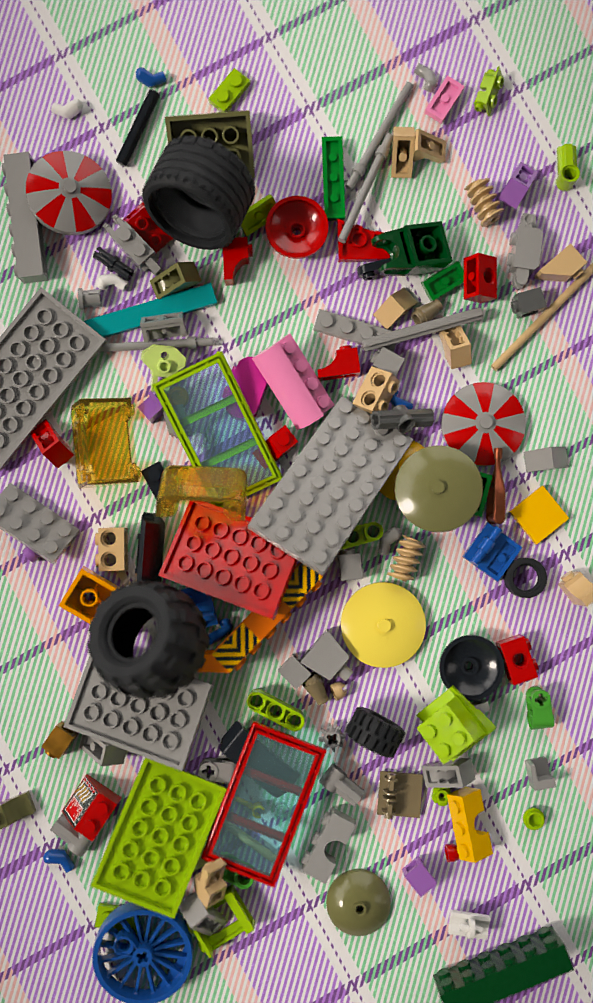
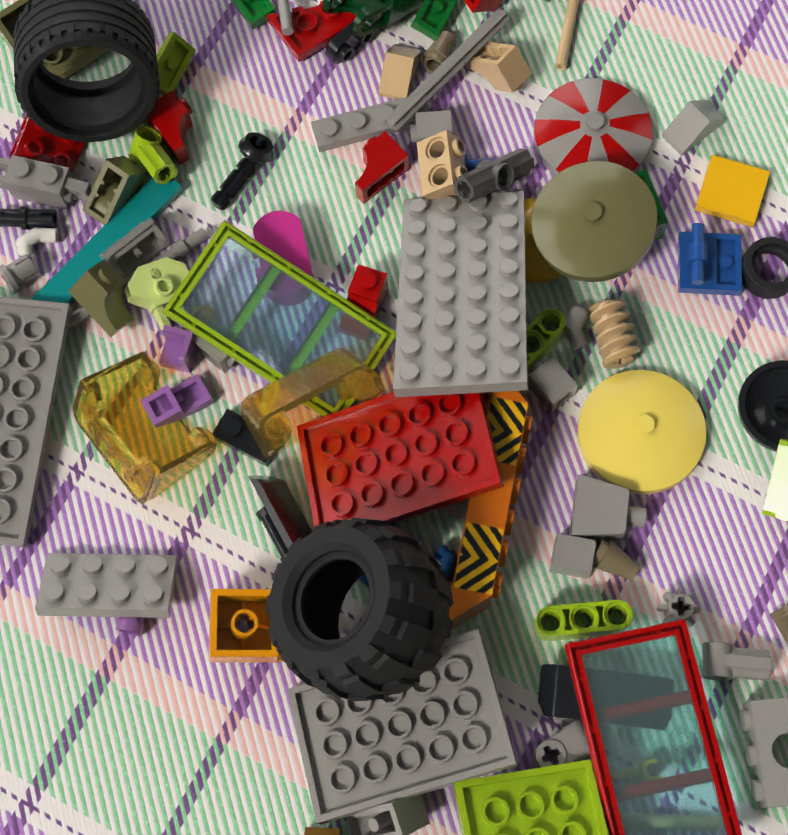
camera: 25 degrees left, 15 degrees down
(51, 444) = (75, 469): red arch -> none
(118, 549) = (240, 548): tan brick -> none
(126, 349) = (101, 296): none -> olive arch
(133, 438) = (177, 403): none -> medium lavender slope
(209, 272) = (147, 152): none -> lime piece
(248, 319) = (233, 184): none -> black axle
(275, 306) = (256, 148): none -> black hat
(293, 382) = (335, 213): bright pink brick -> none
(296, 214) = (224, 35): red dish -> none
(336, 690) = (643, 547): tan hinge -> none
(375, 732) = (728, 558): black tyre -> none
(496, 496) = (668, 192): copper piece -> none

